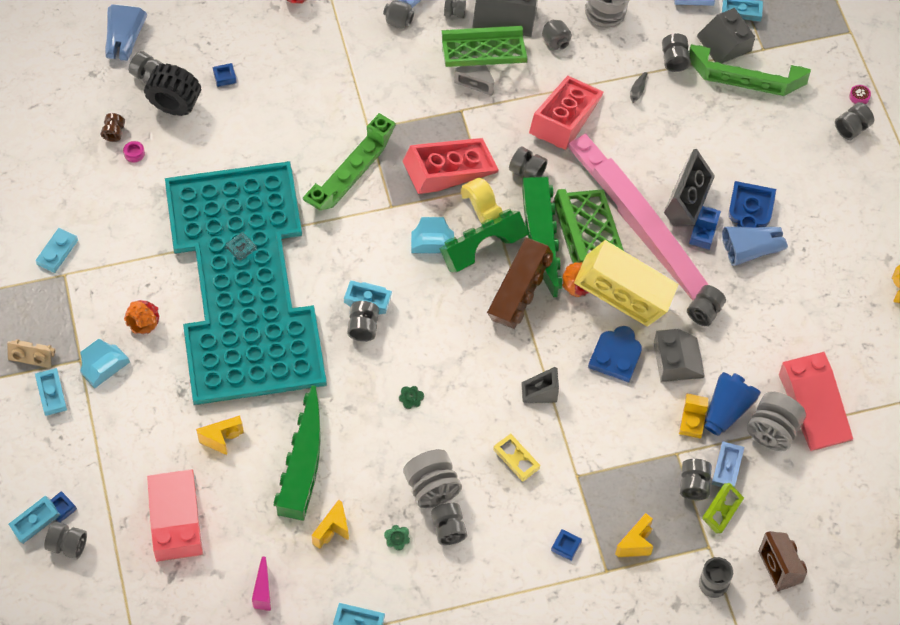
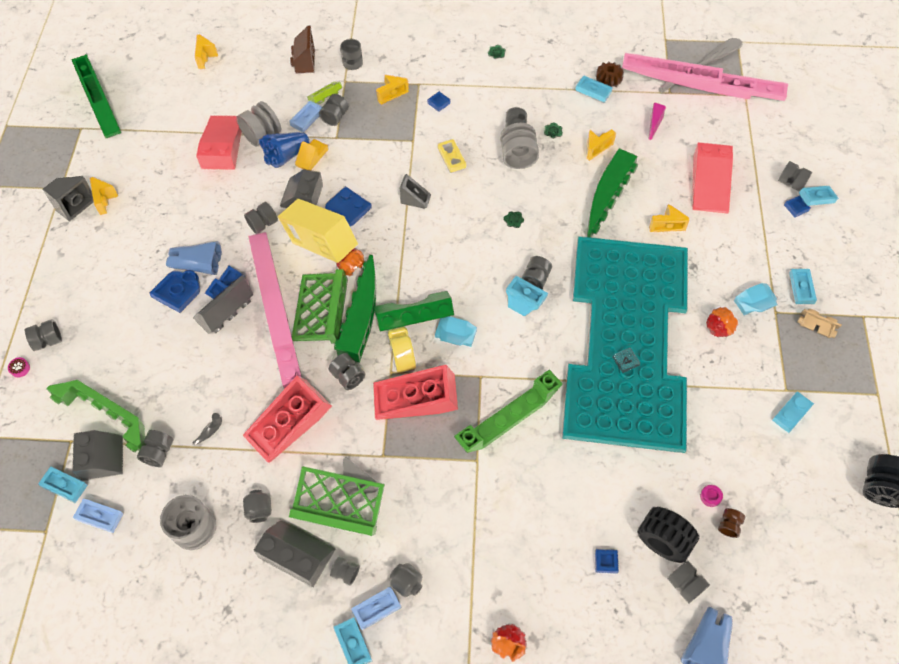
camera: 160 degrees left, 0 degrees up
(520, 283) = (398, 263): reddish brown brick -> none

